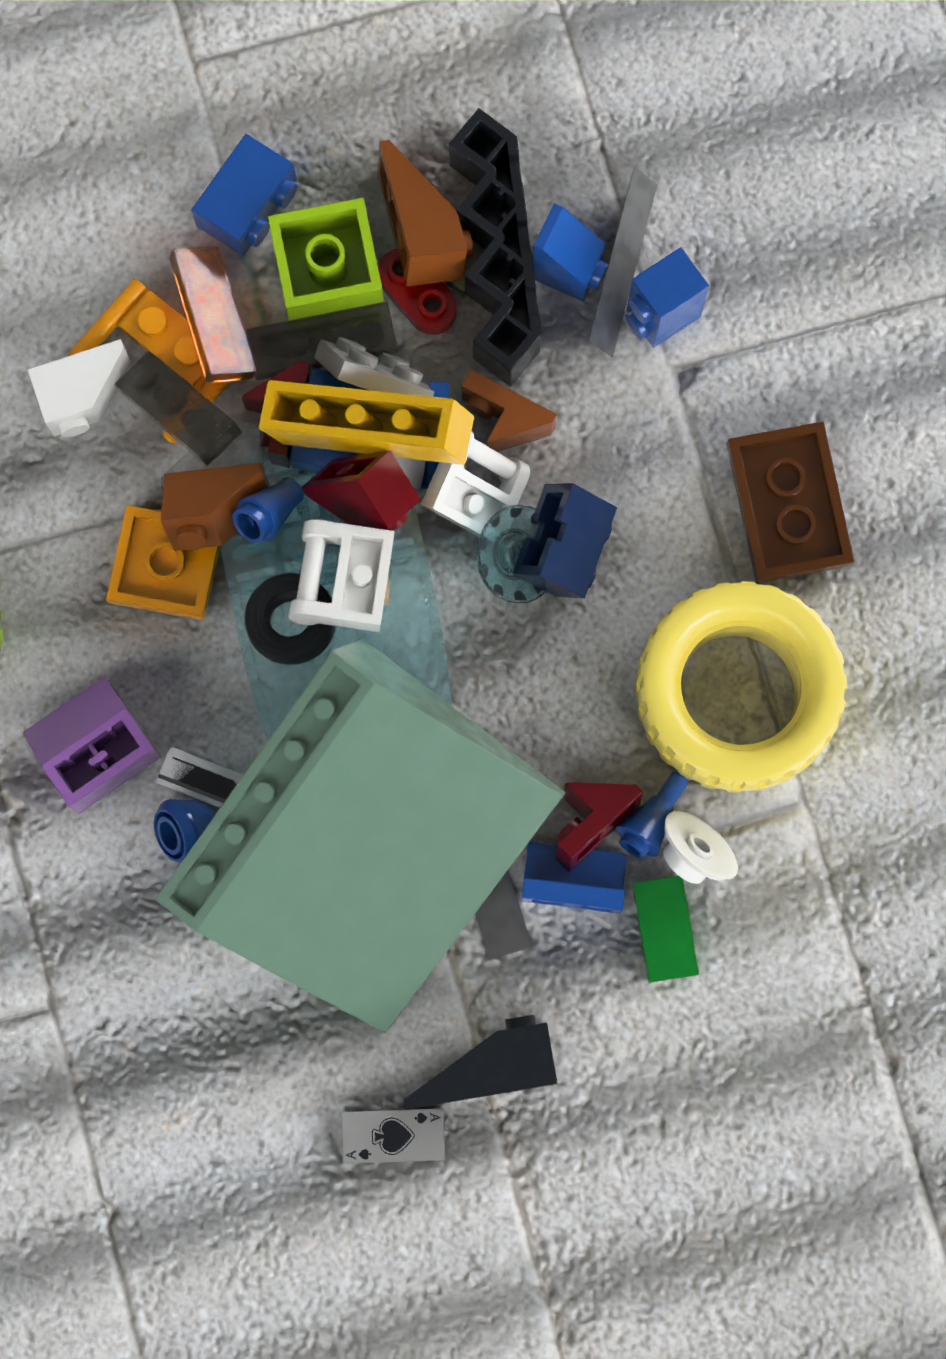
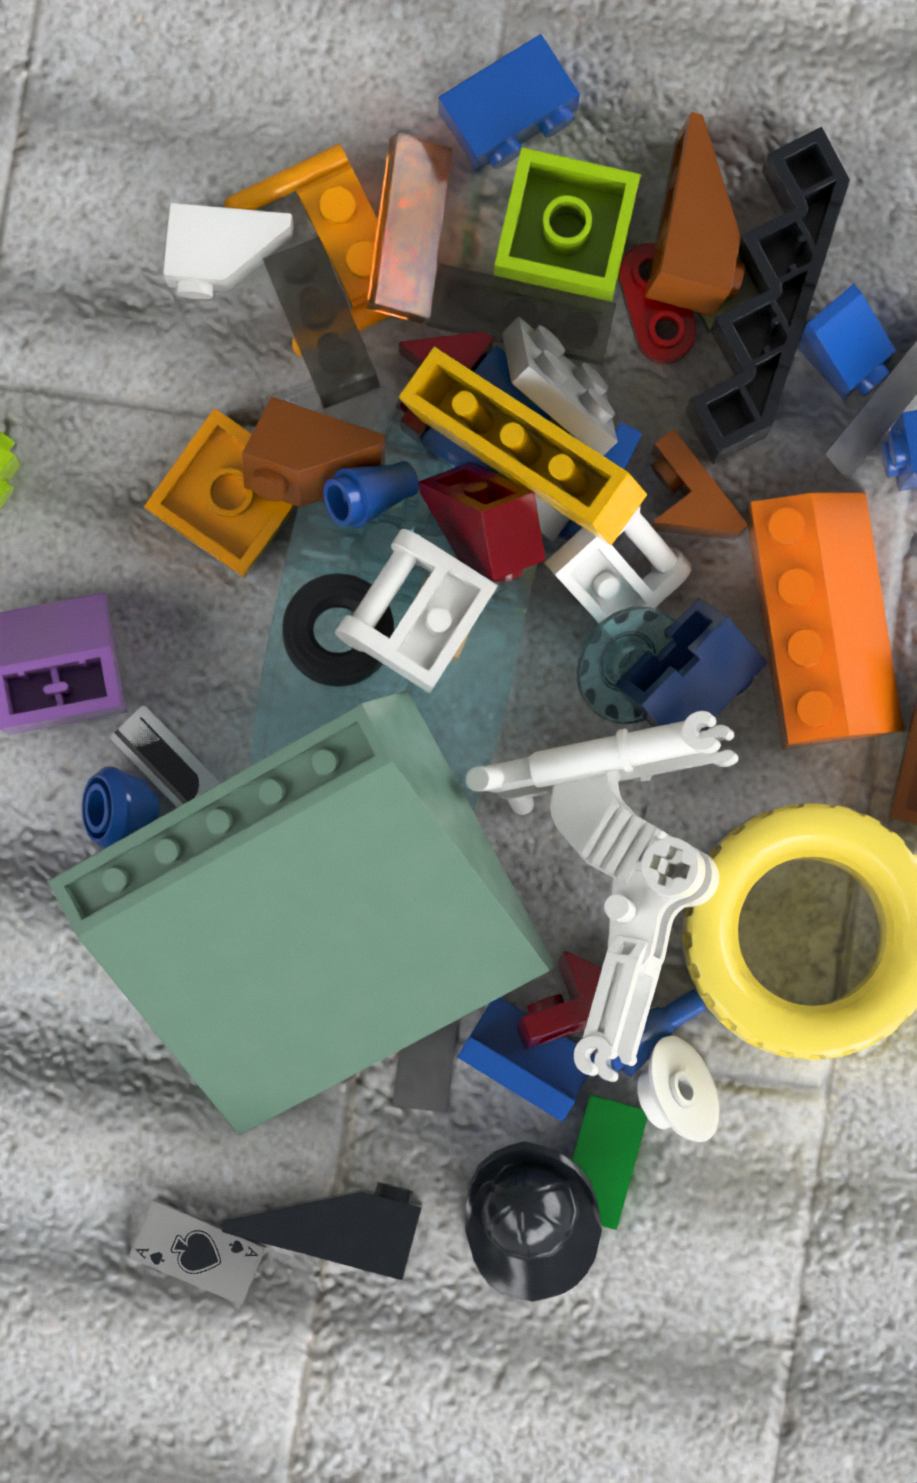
camera: 25 degrees right, 5 degrees up
(575, 682) = (627, 848): none -> white piece
(633, 996) = (532, 1221): none -> black hat
(641, 460) = (823, 618): none -> orange slope

